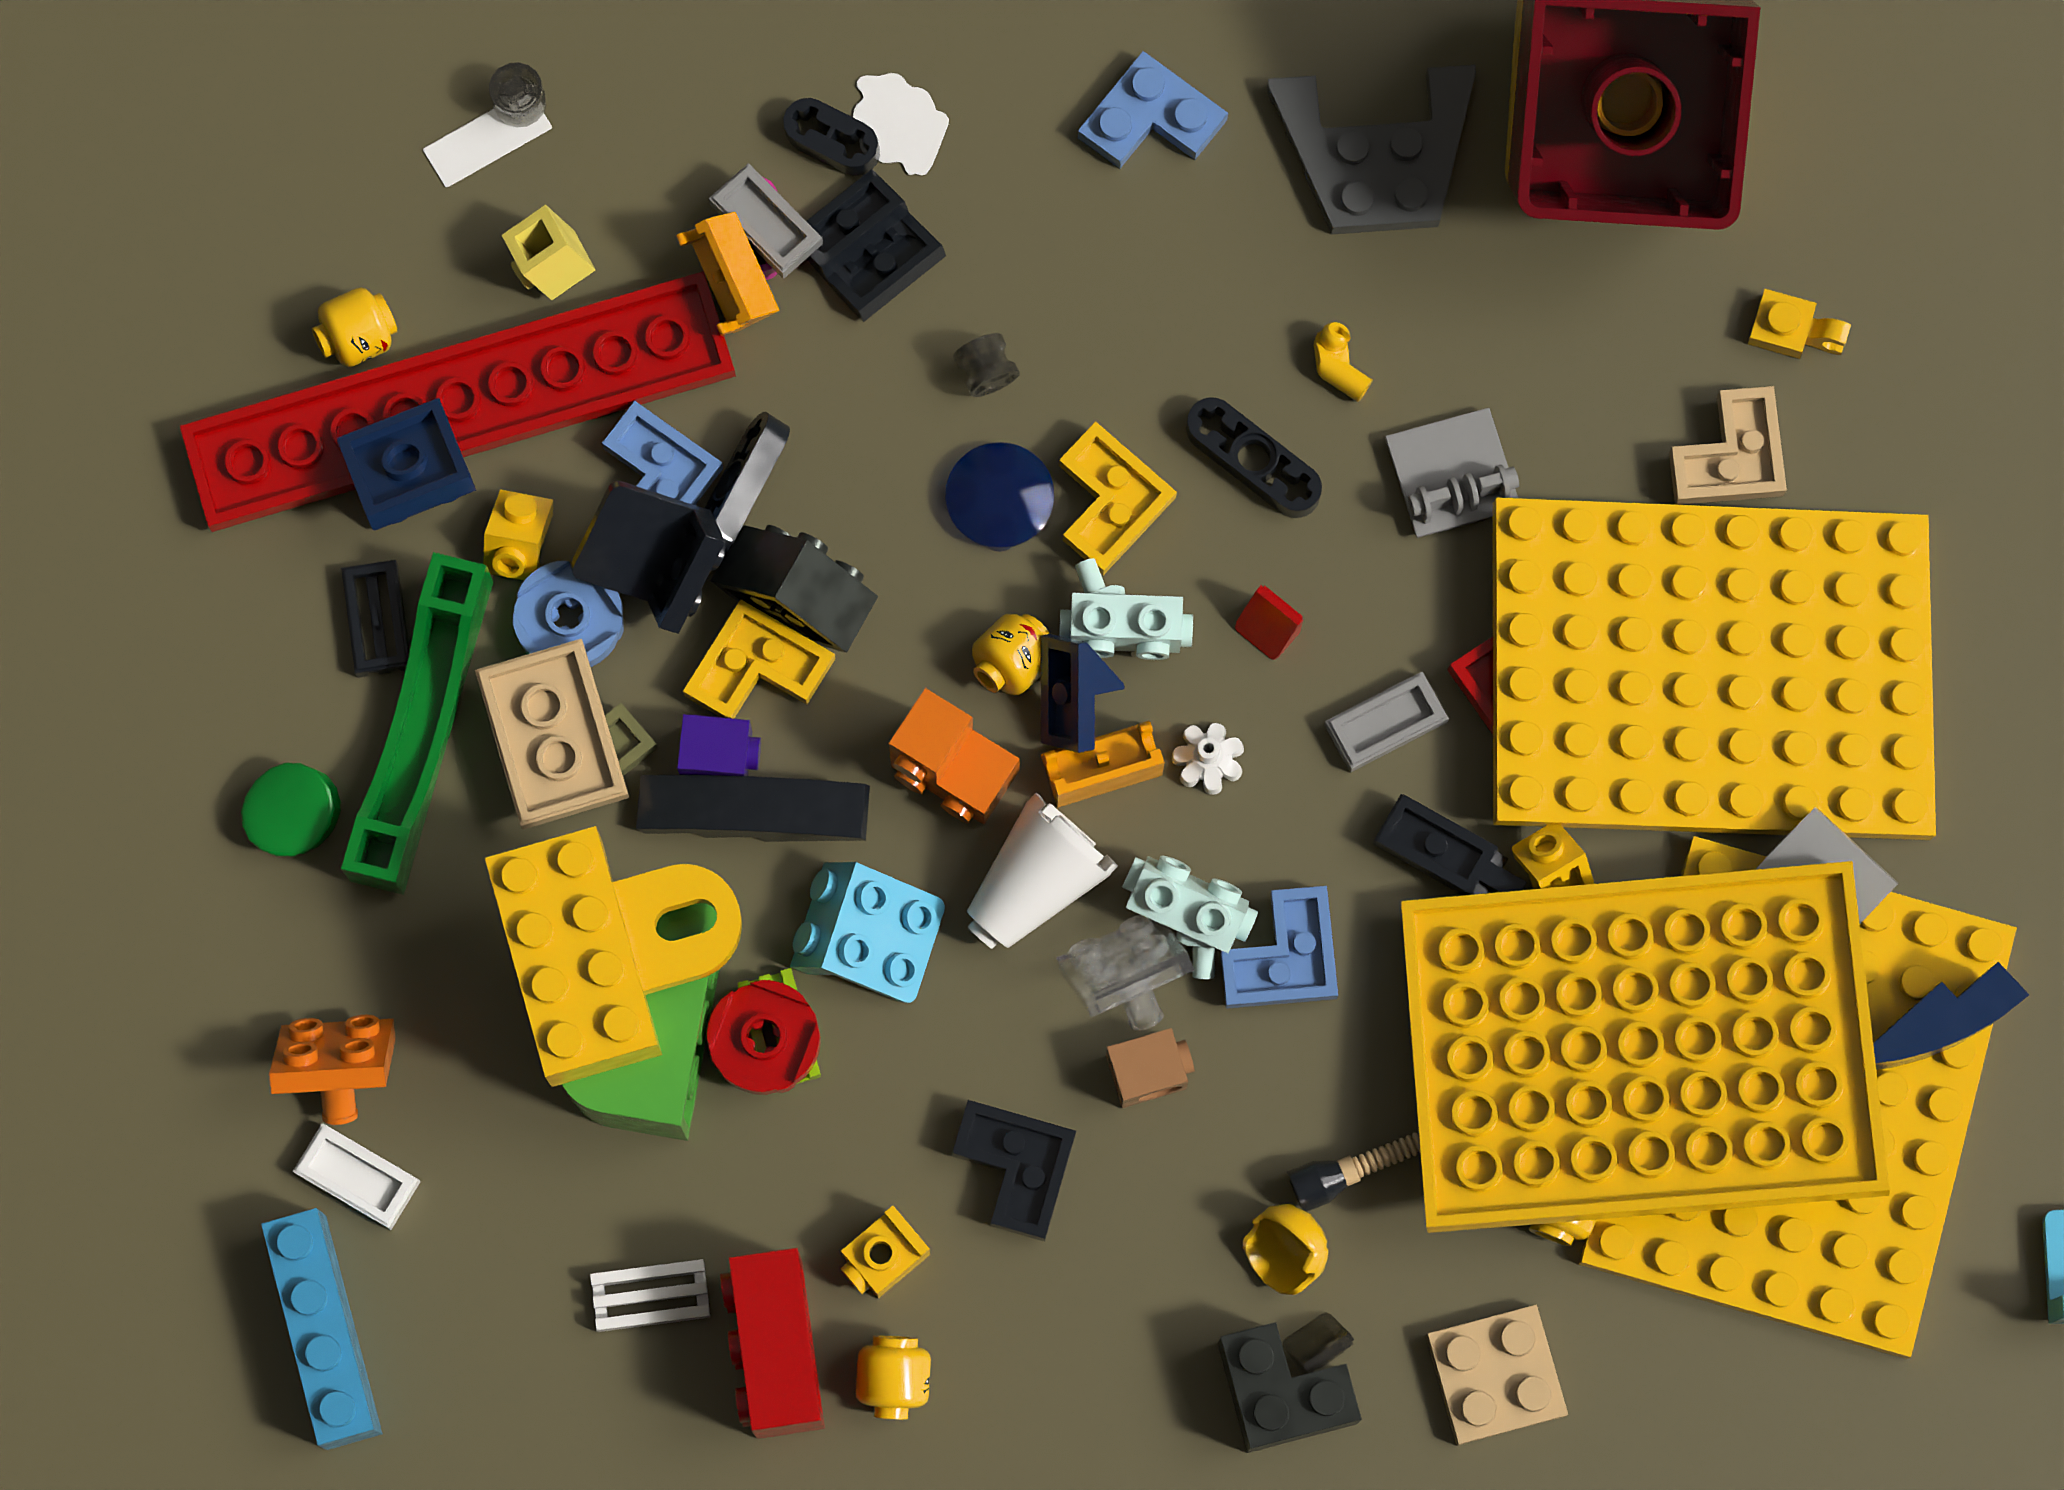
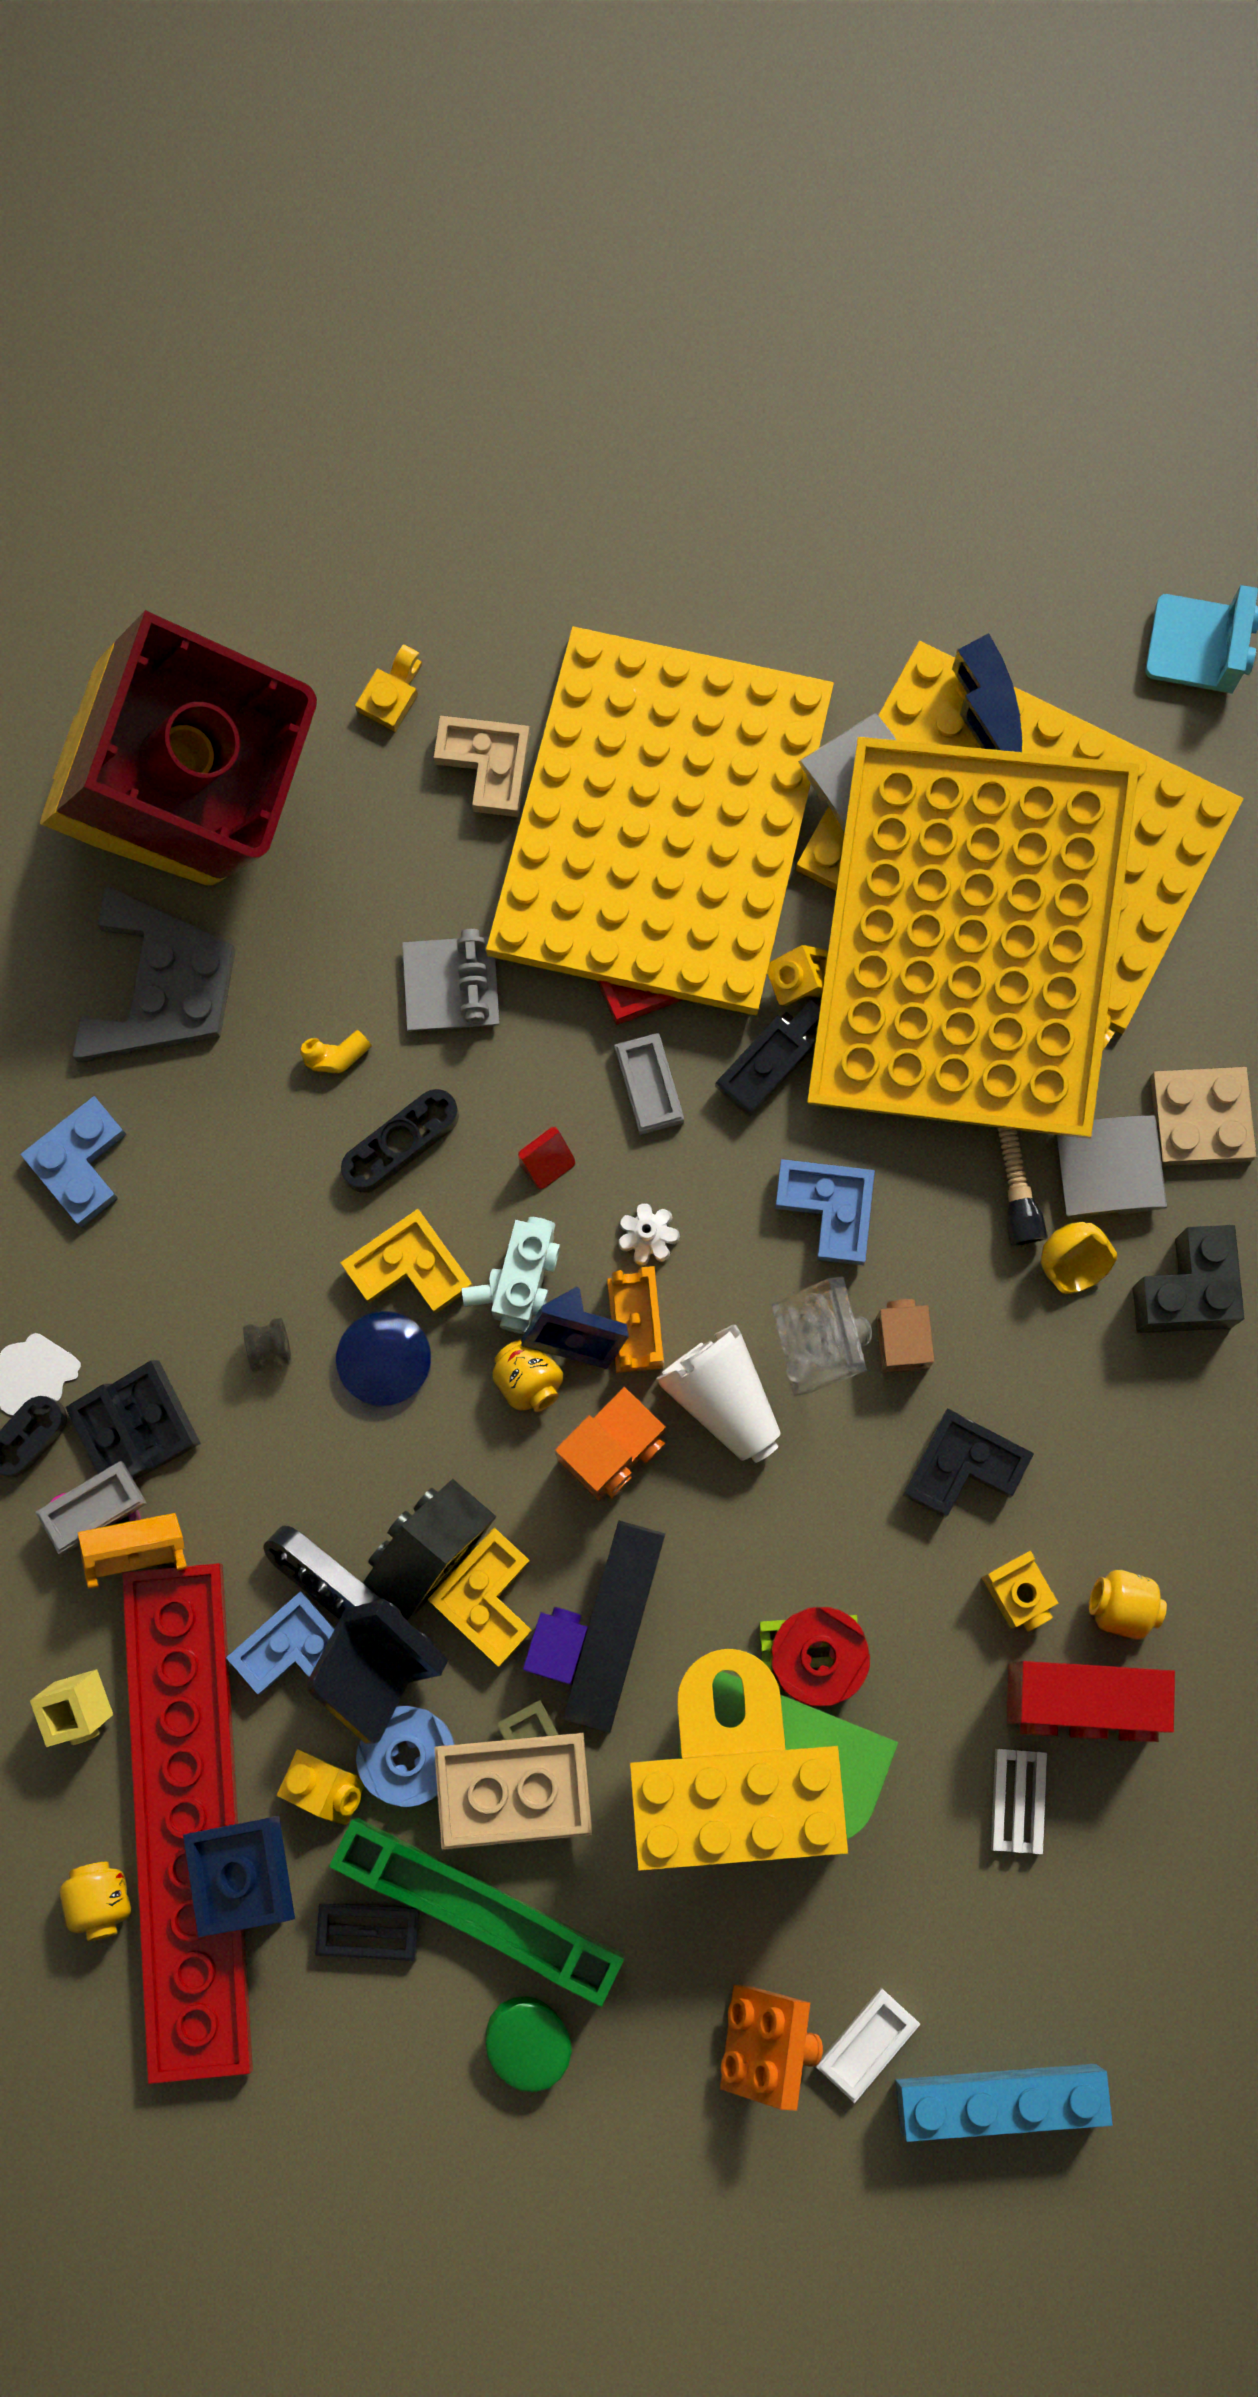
camera: 75 degrees left, 0 degrees up
(868, 930) = (741, 1550): medium azure bracket -> none
(1199, 911) = (780, 1269): light aqua brick -> none
(1317, 1343) = (1157, 1249): clear smoke slope -> none
(1406, 1277) = (1113, 1169): none -> light grey slope

